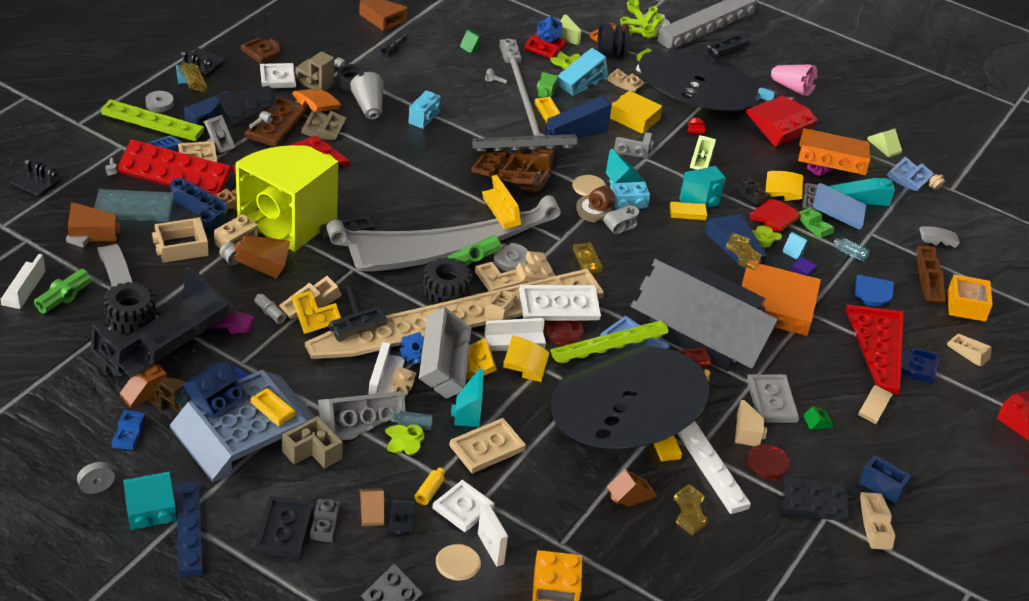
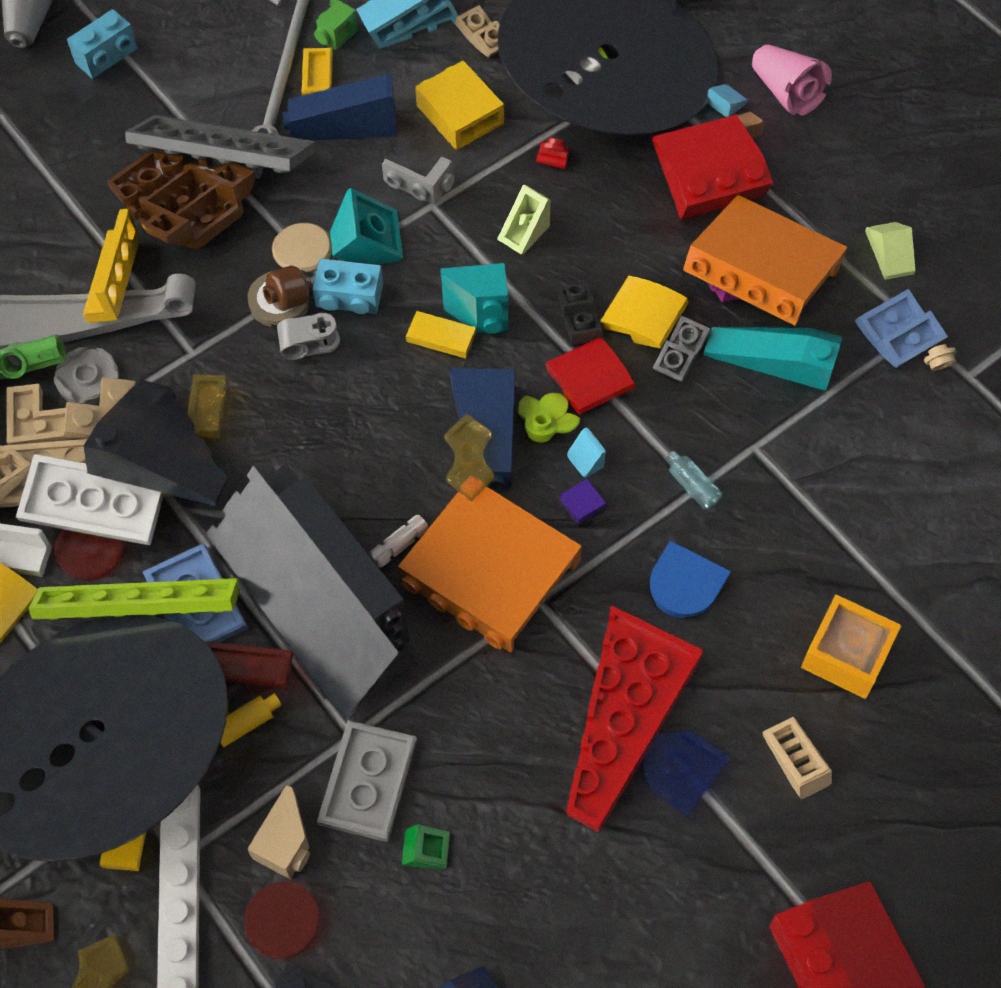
camera: 25 degrees right, 20 degrees up
(575, 273) = (154, 447): none -> black slope
(813, 221) = (657, 406): bright green slope -> none
(839, 206) = (717, 380): medium blue tile -> none
(875, 404) = (542, 844): tan slope -> none
(930, 274) = (812, 570): reddish brown slope -> none
(935, 235) = (869, 481): light grey slope -> none

